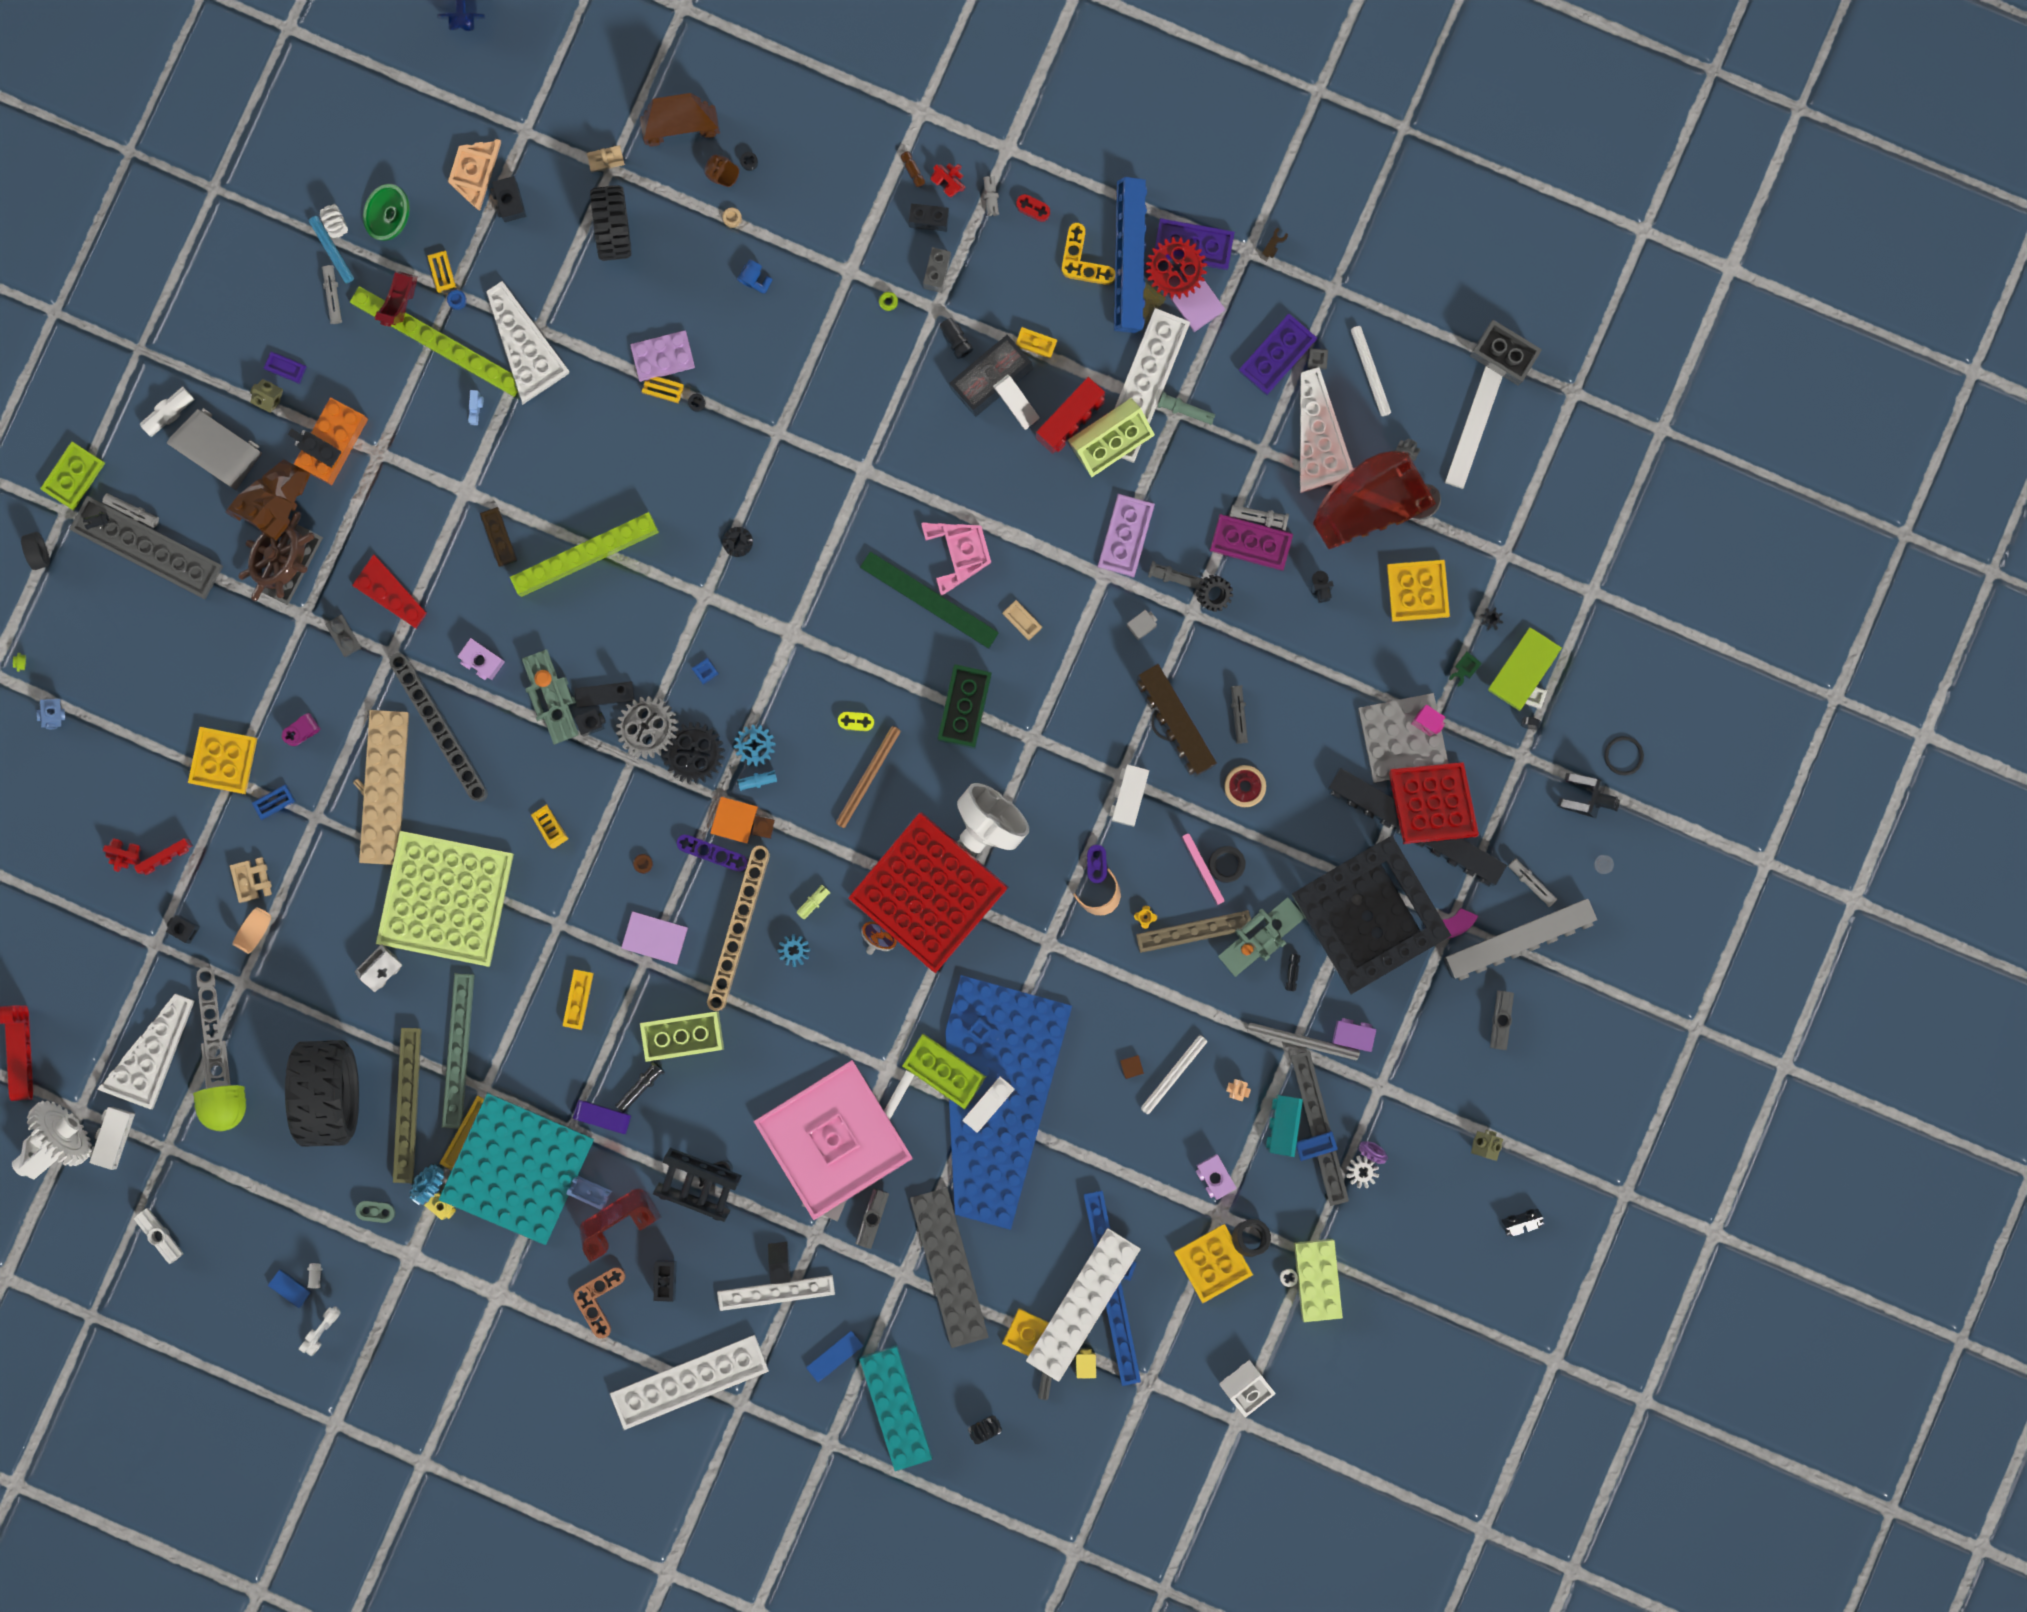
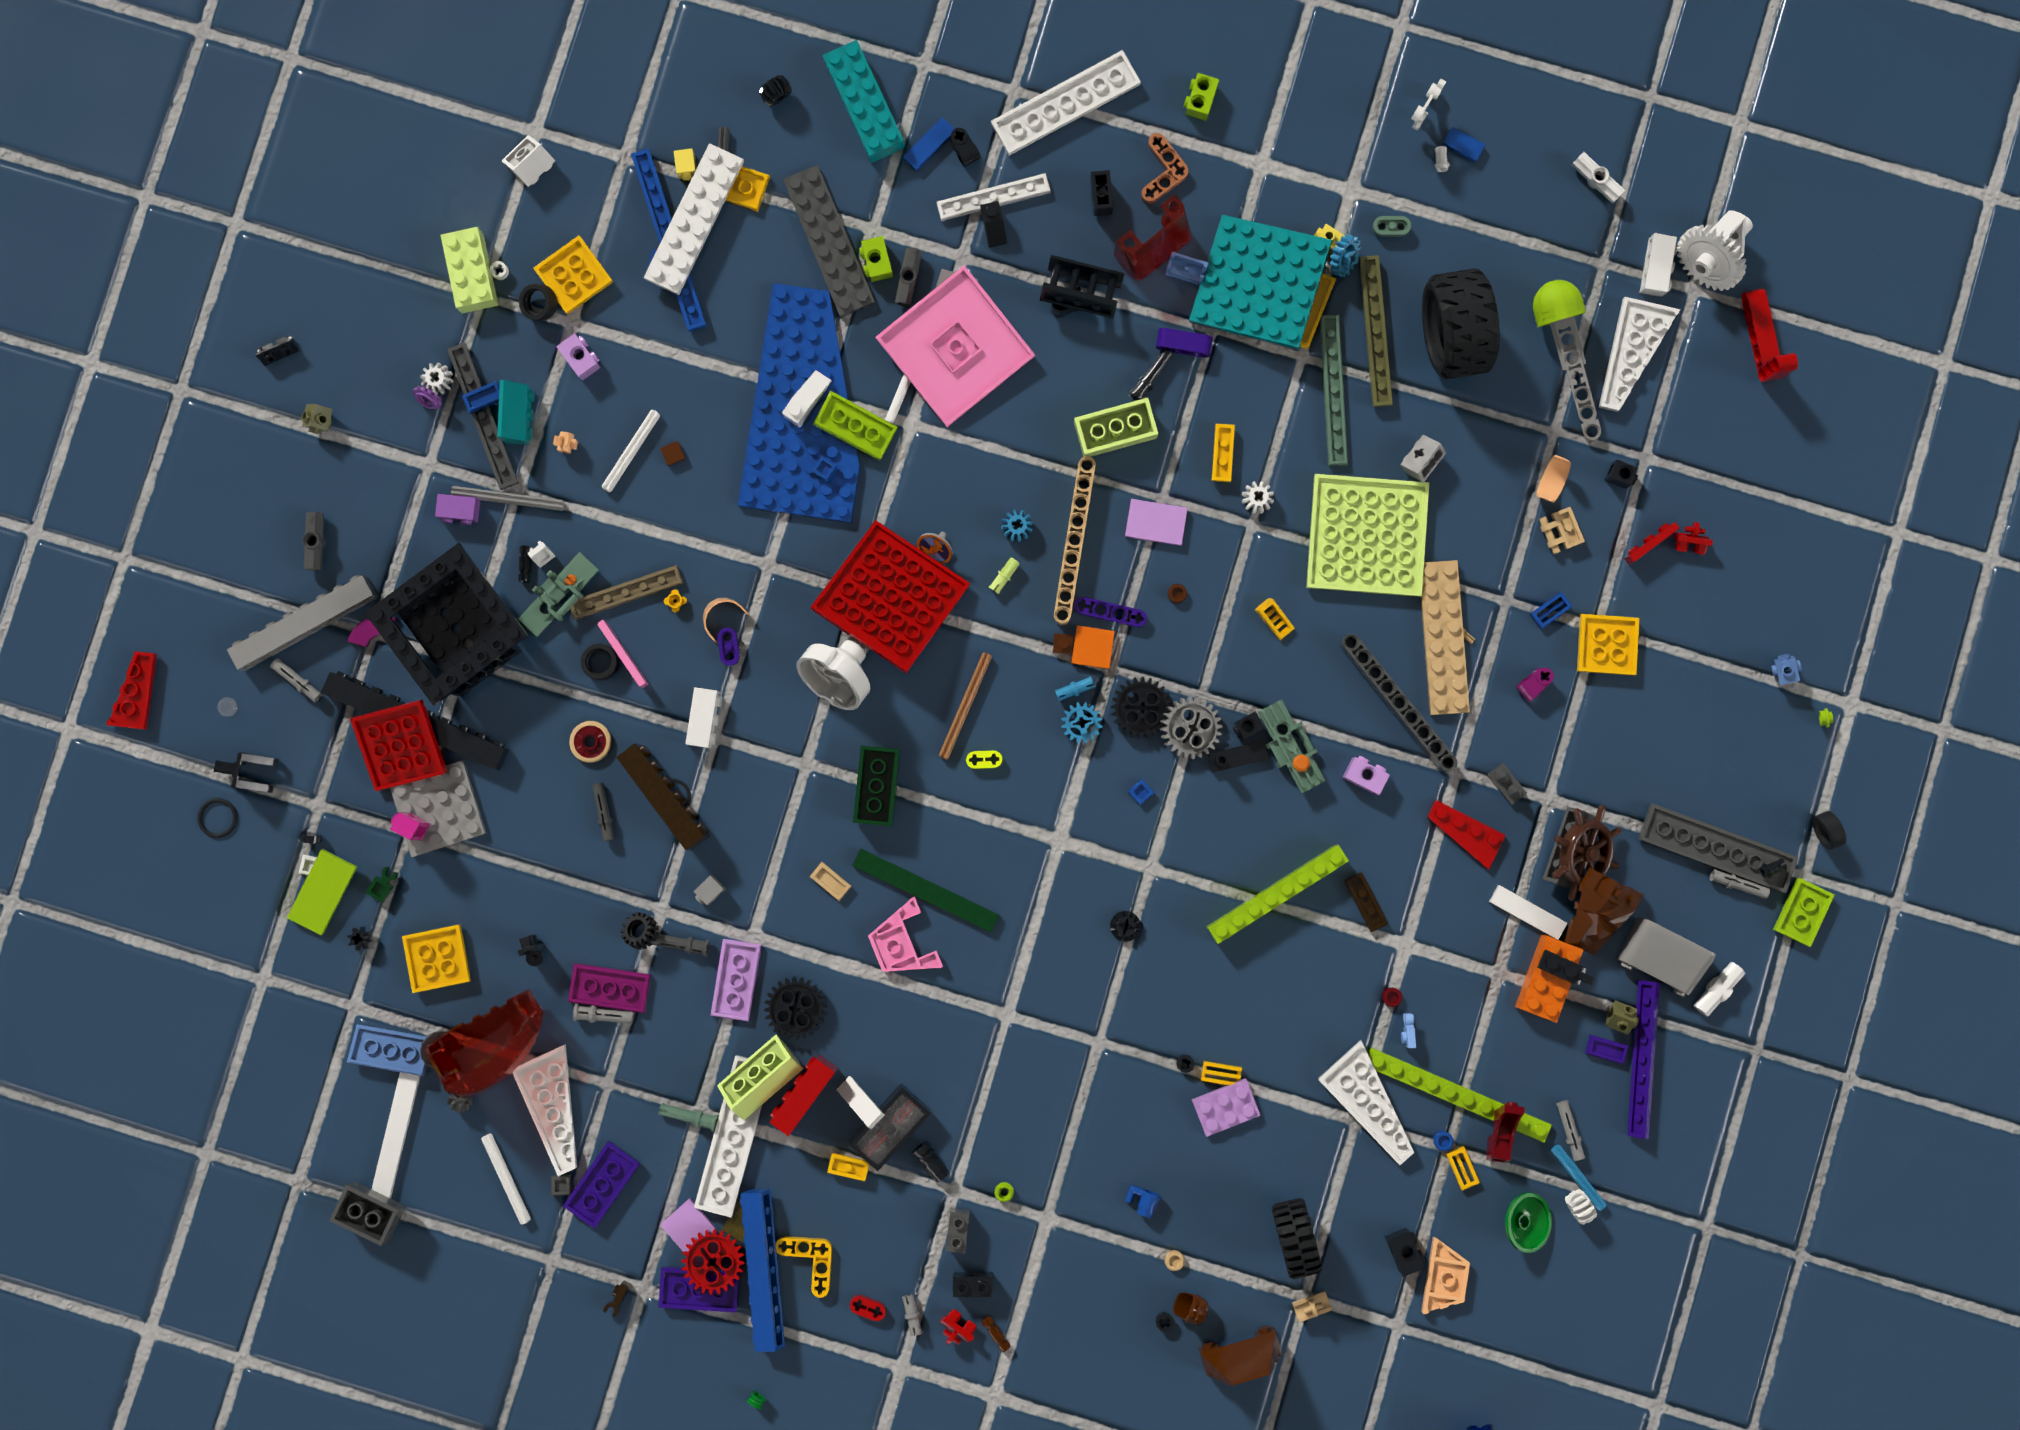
camera: 175 degrees right, 0 degrees up
(251, 353) = (1643, 1059): none -> dark purple plate
(341, 508) = (1528, 912): none -> white tile
(486, 442) = (1391, 997): none -> dark red tile
(543, 948) = (1250, 495): none -> white gear
(545, 1368) = (1204, 97): none -> lime brick
(797, 1343) = (965, 149): none -> black piece
(899, 1252) = (881, 269): none -> lime brick
(1054, 495) = (778, 1004): none -> black gear
(1149, 134) = (756, 1400): none -> green bush
(1274, 979) = (541, 554): none -> white tile
(1473, 507) = (387, 1050): none -> medium blue tile
(1695, 886) = (135, 695): none -> red wing

